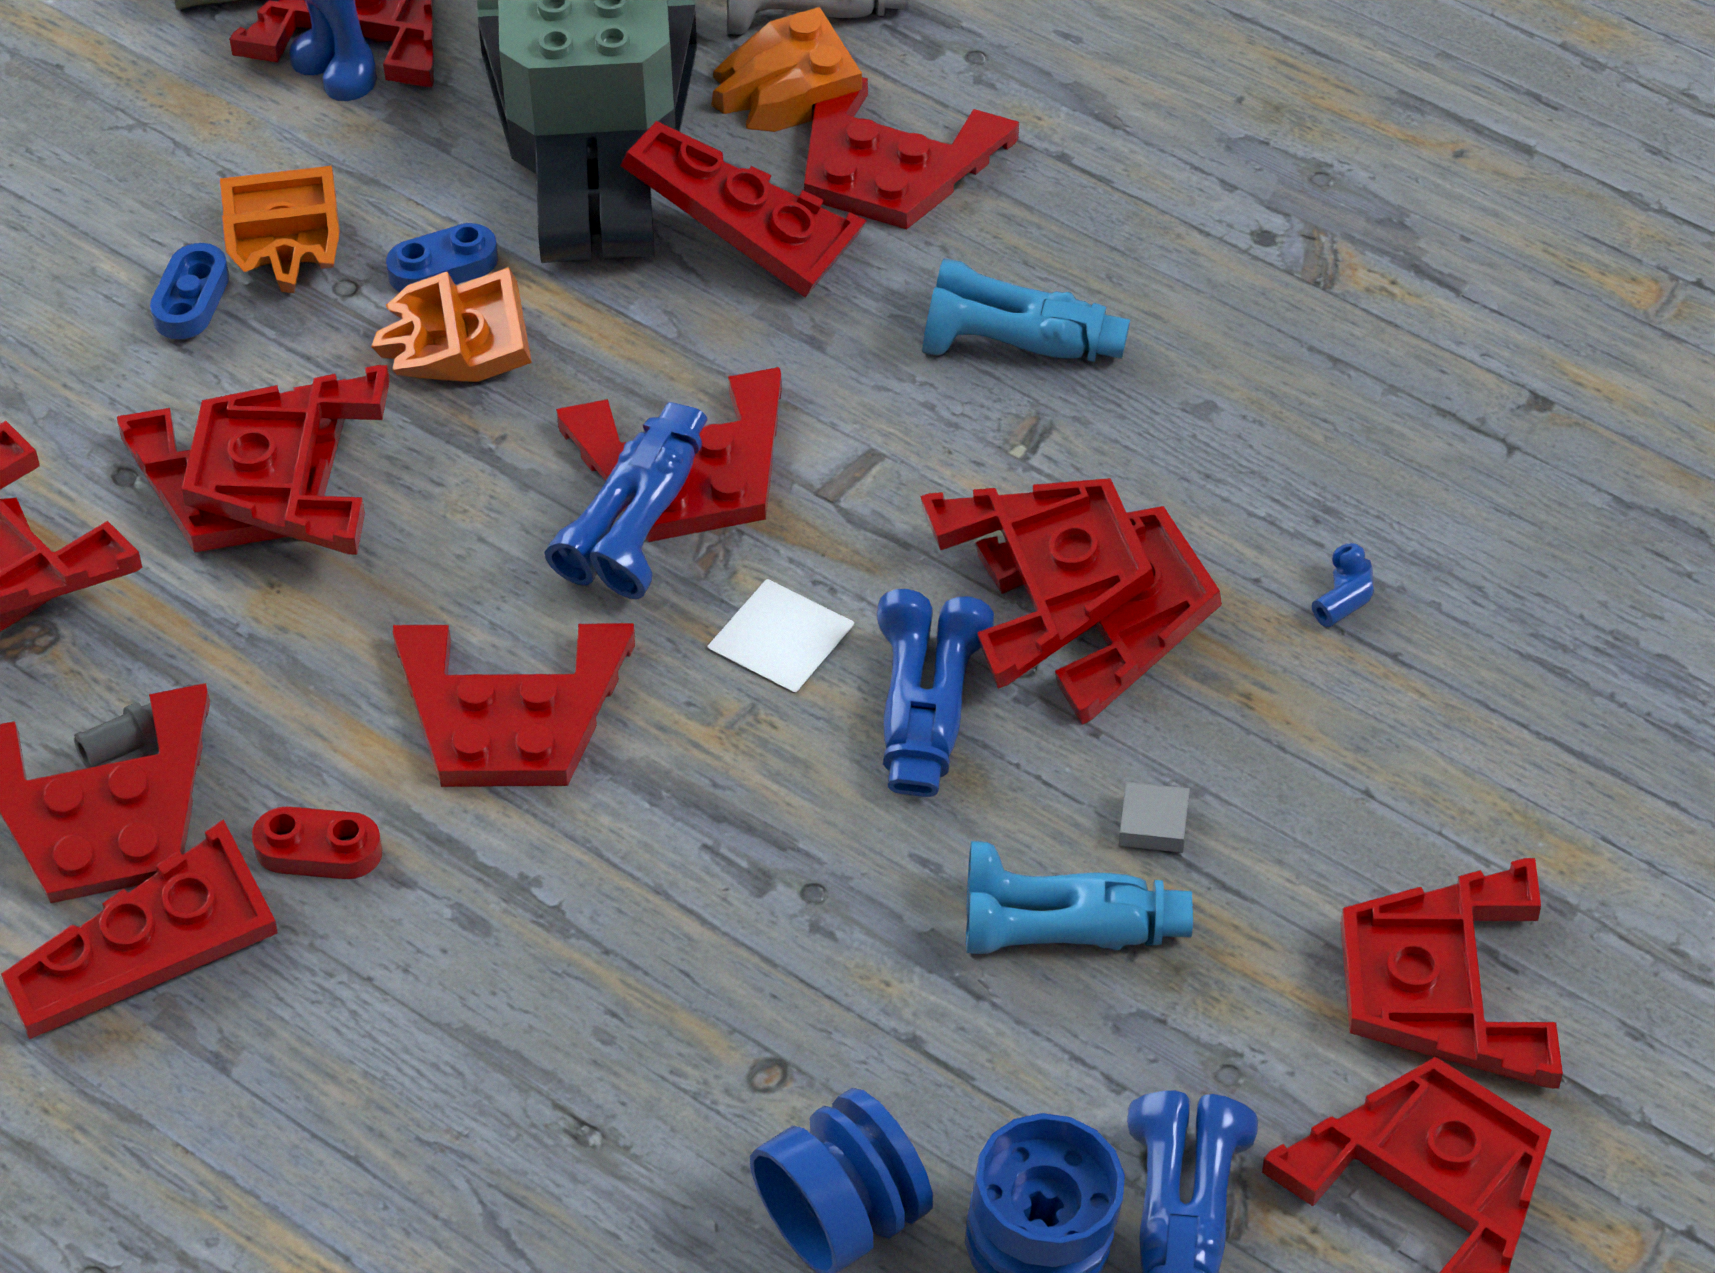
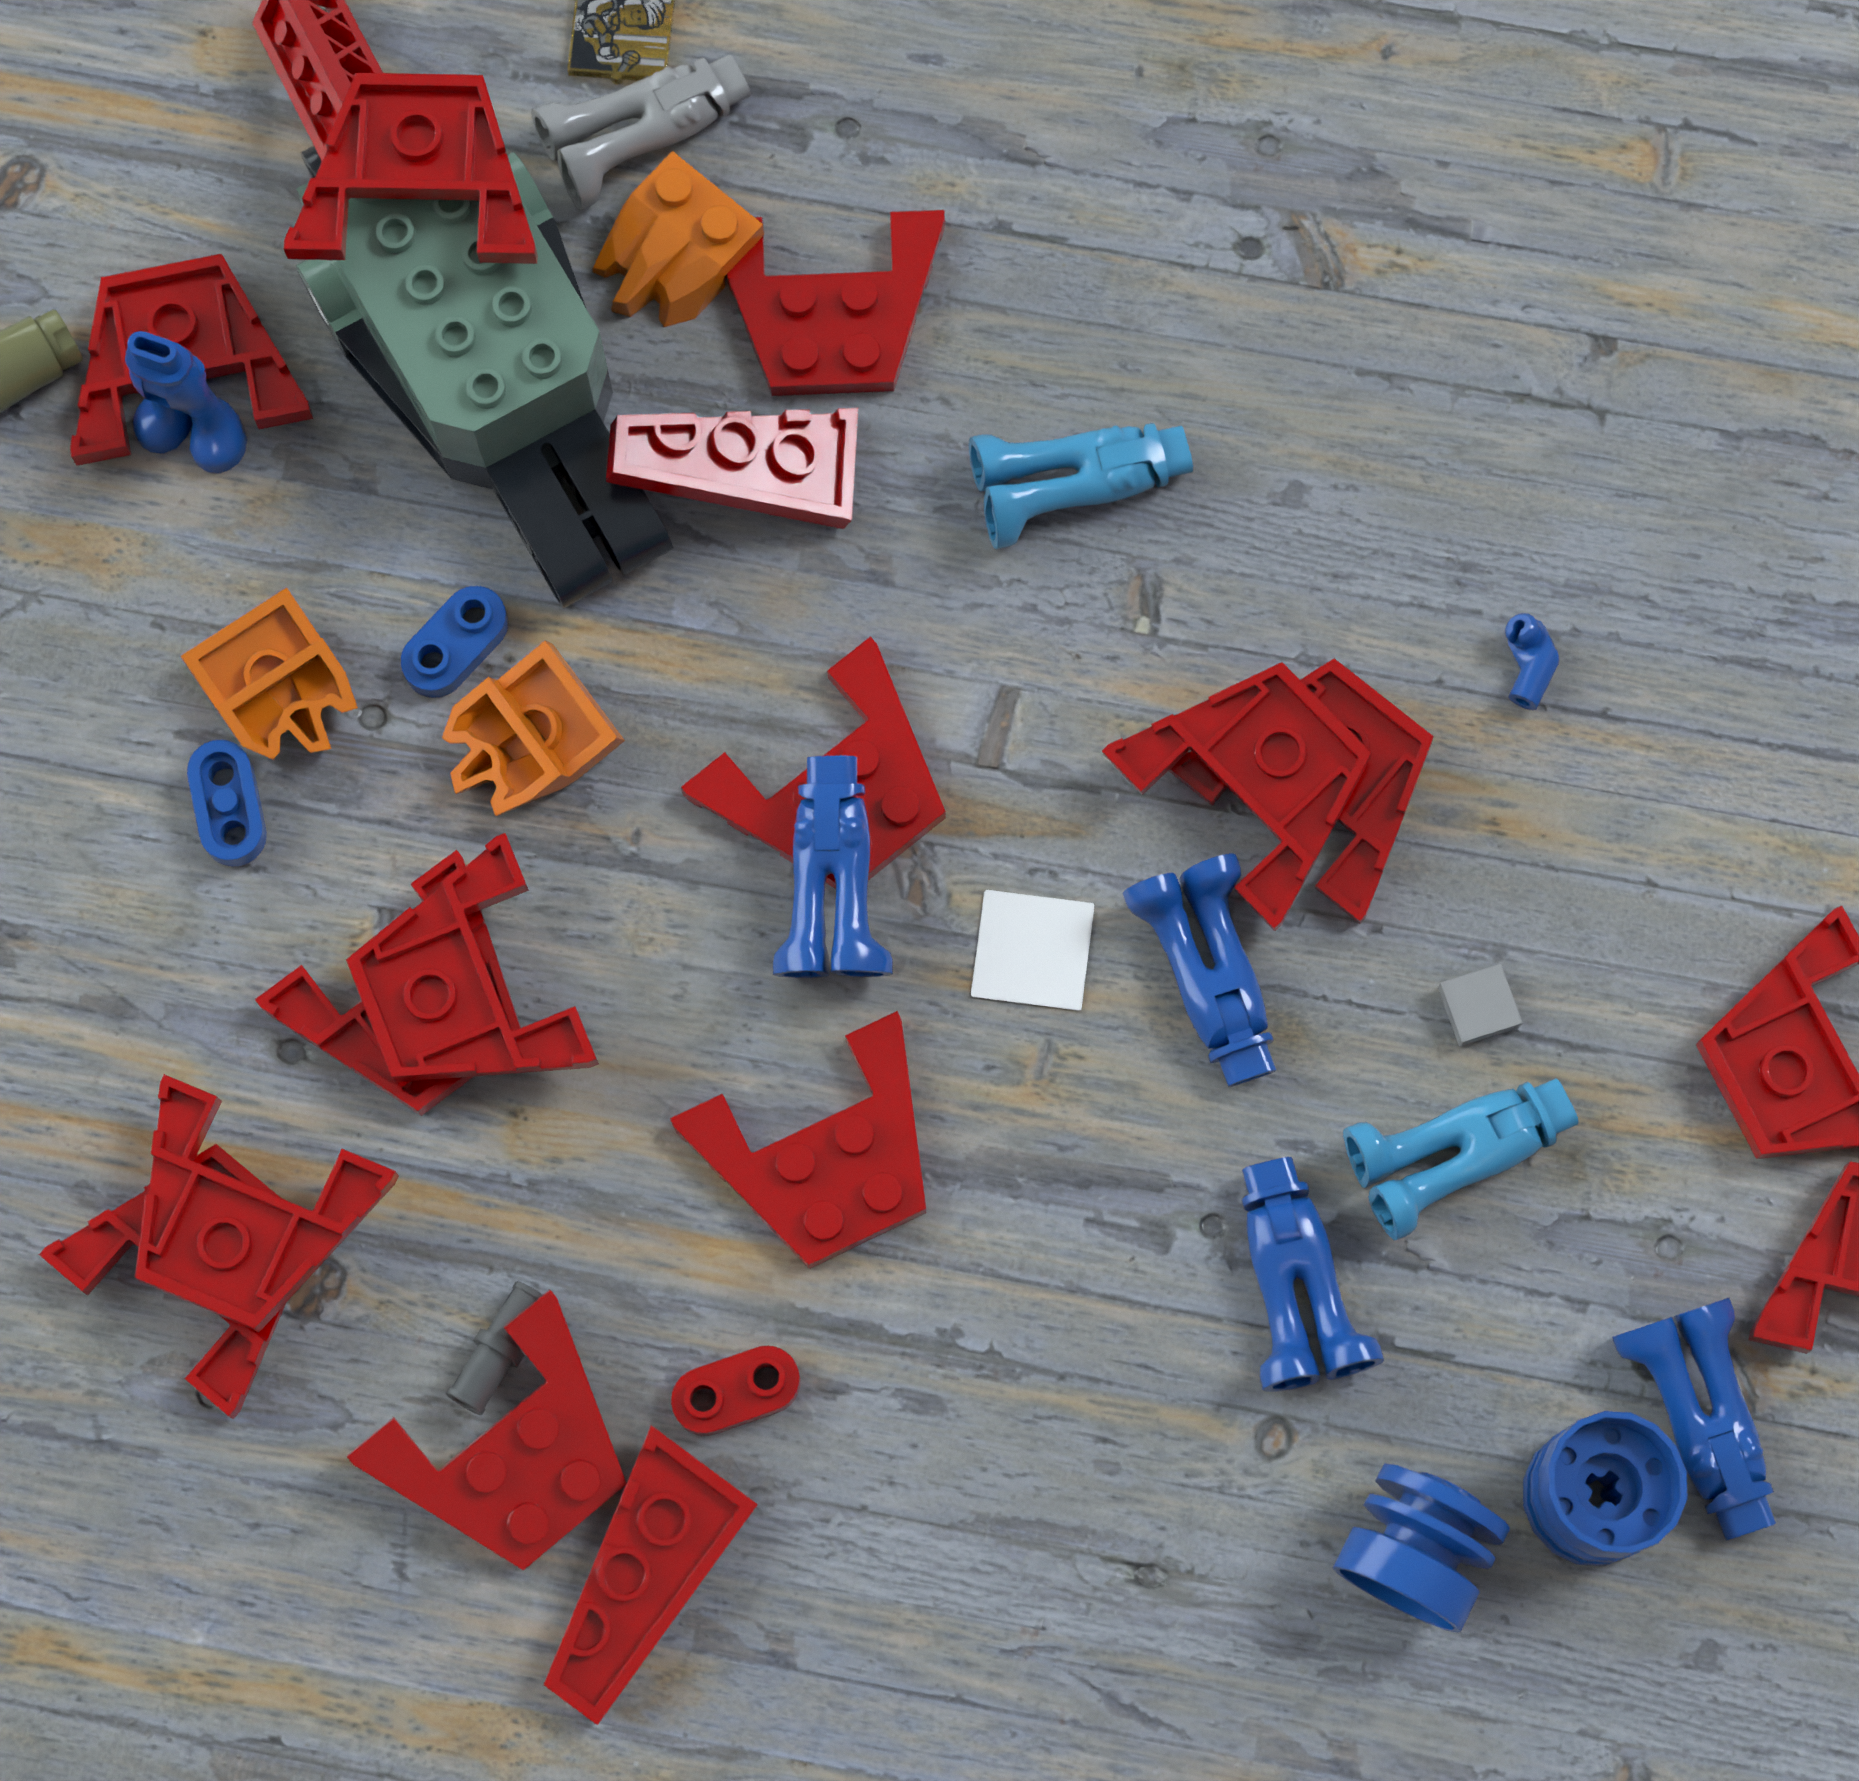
camera: 25 degrees left, 25 degrees up
(866, 919) = (1291, 1244): none -> blue piece

